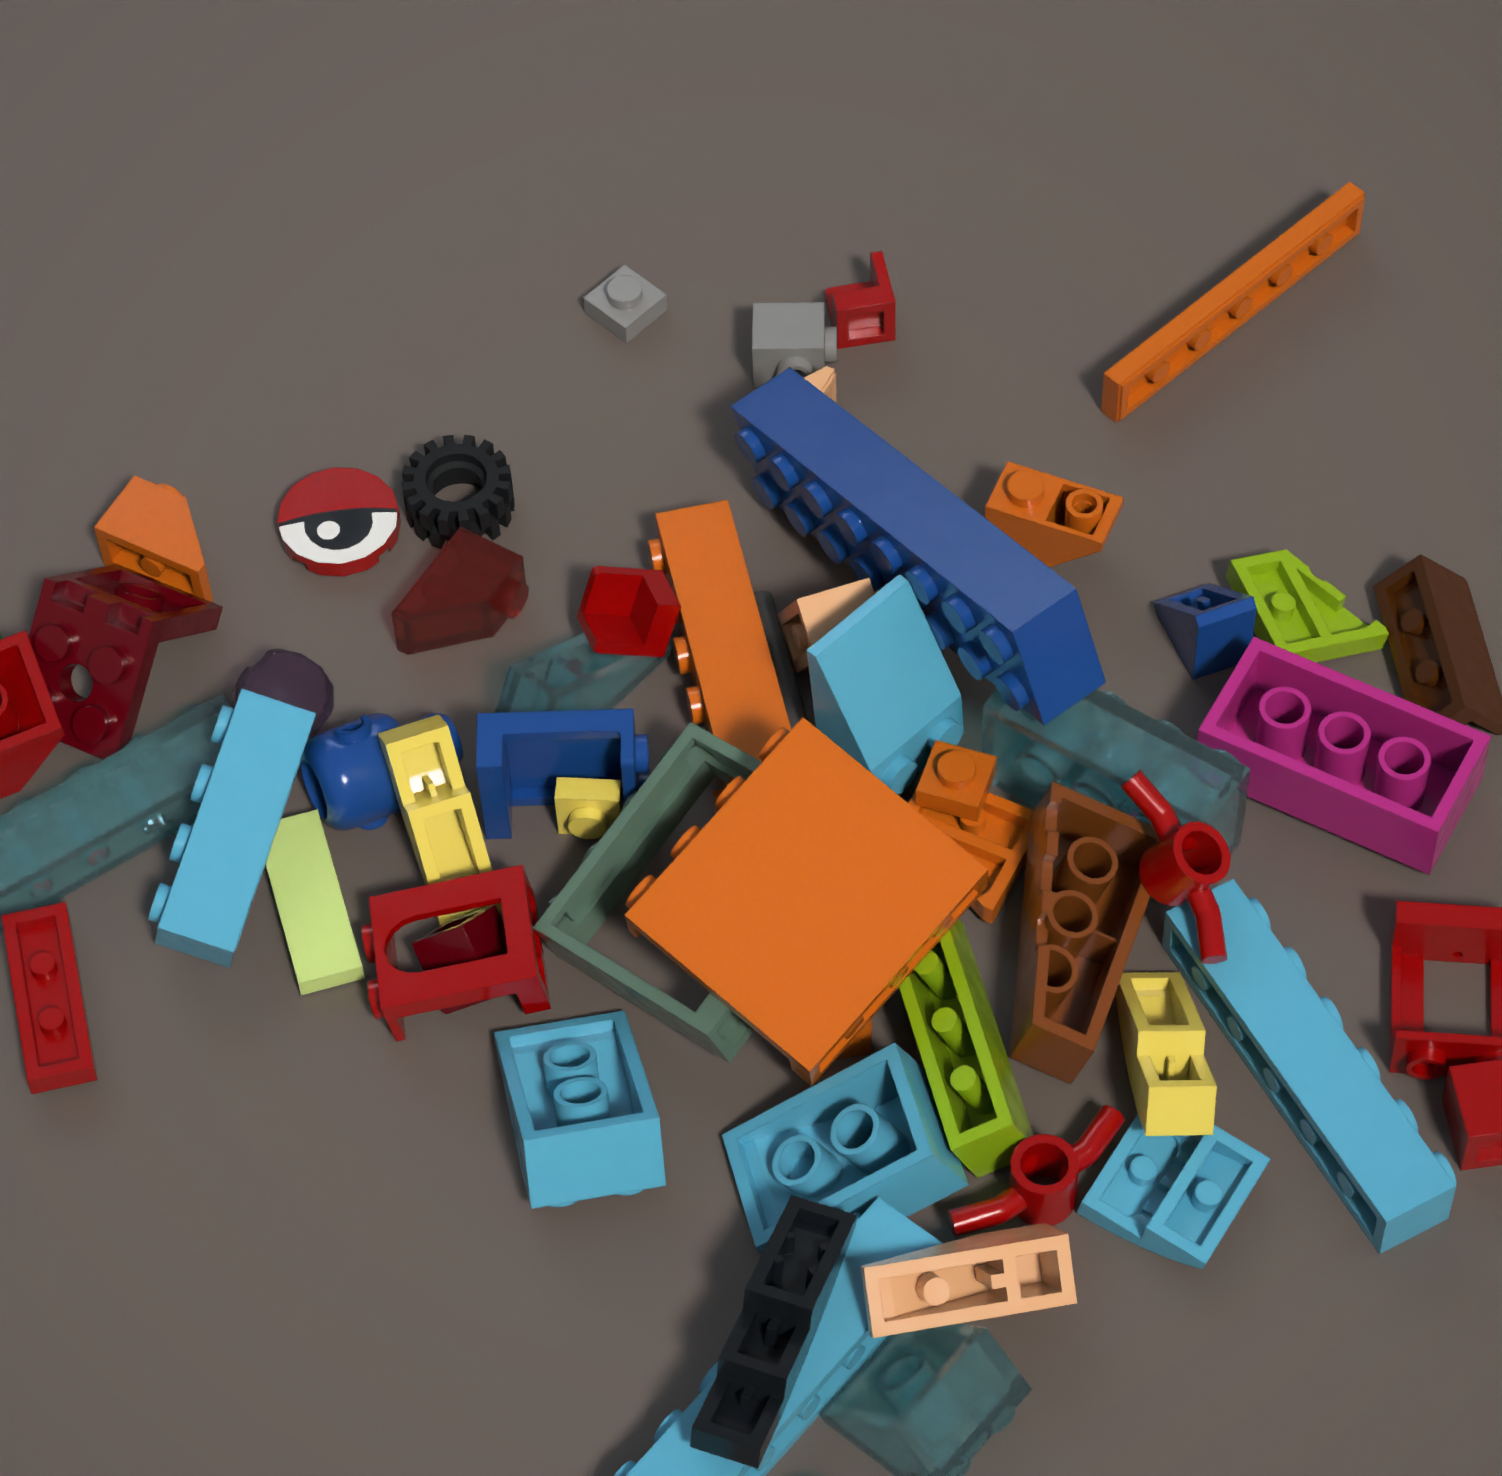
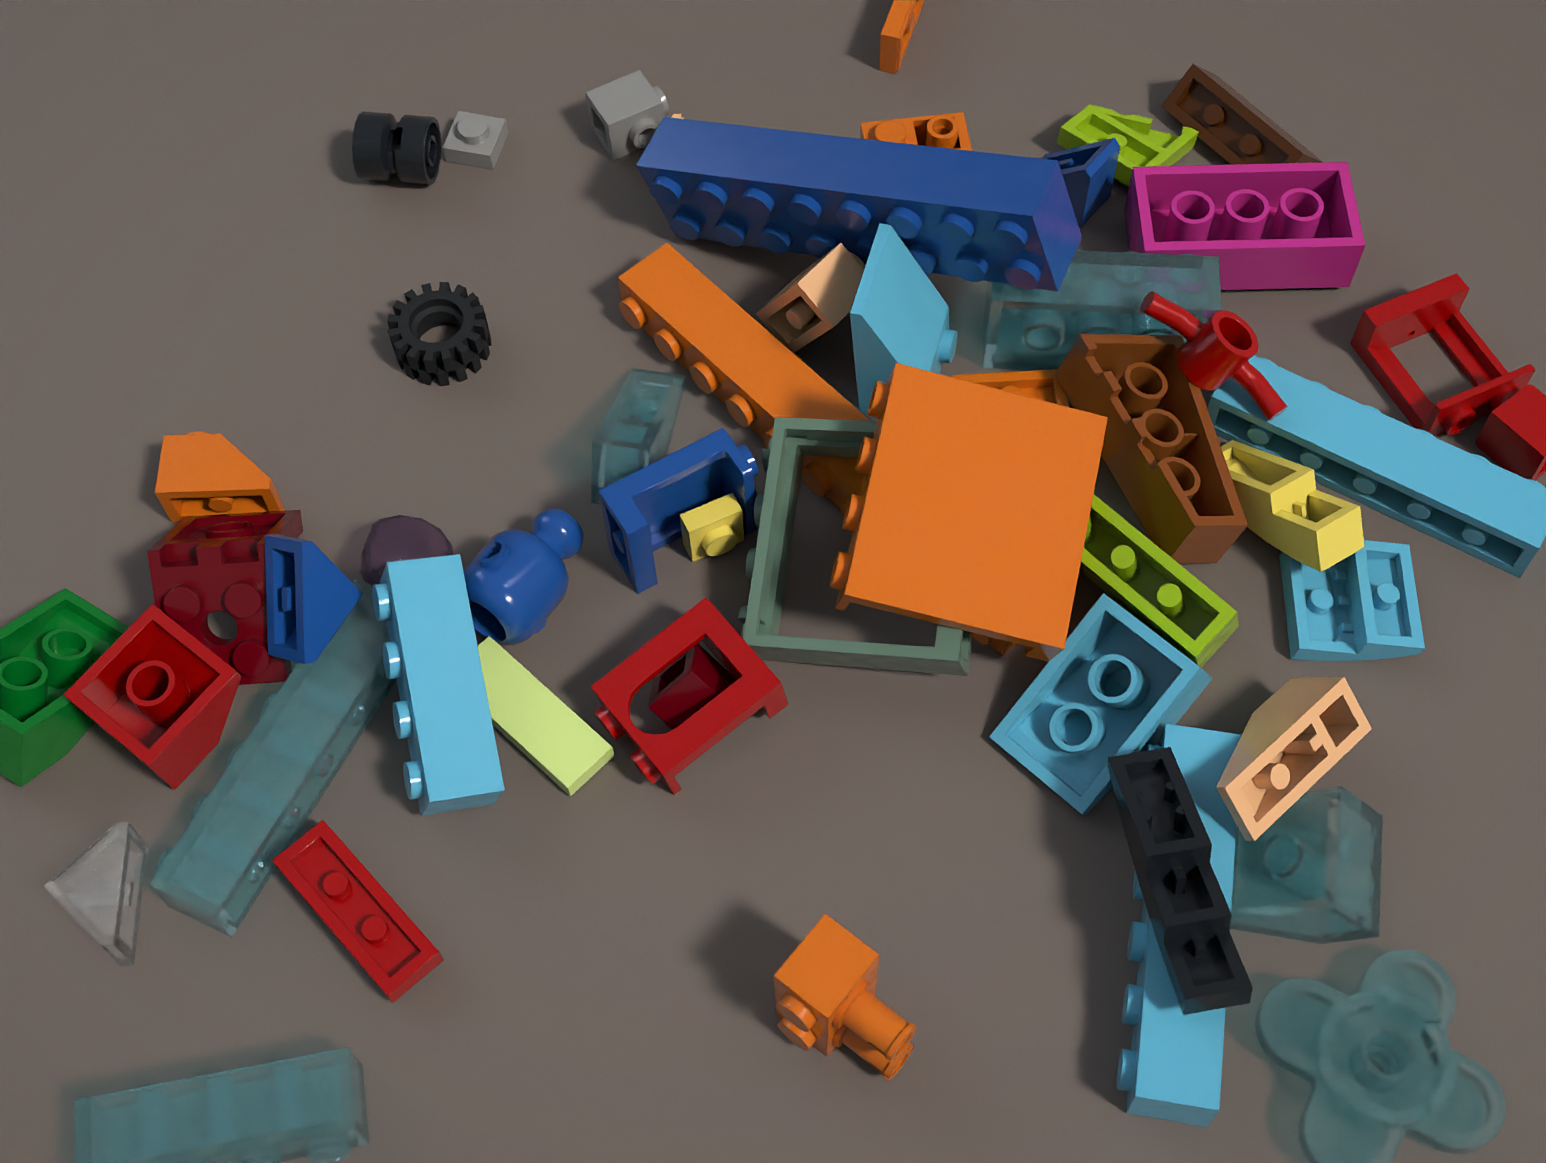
camera: 30 degrees left, 5 degrees up
(160, 689) = (304, 598): none -> blue slope
(338, 521) = (354, 399): tile -> none
(400, 1278) = (830, 1000): none -> orange brick
(435, 803) = (596, 582): light yellow slope -> none
(461, 595) = (498, 409): clear red slope -> none
(532, 278) = (392, 147): none -> black wheel
(580, 1110) = (873, 774): medium azure slope -> none
(628, 611) = (646, 360): red panel -> none
(864, 310) = (667, 62): red panel -> none
(956, 780) = (986, 365): orange plate -> none
(1035, 1157) = (1249, 663): red piece -> none

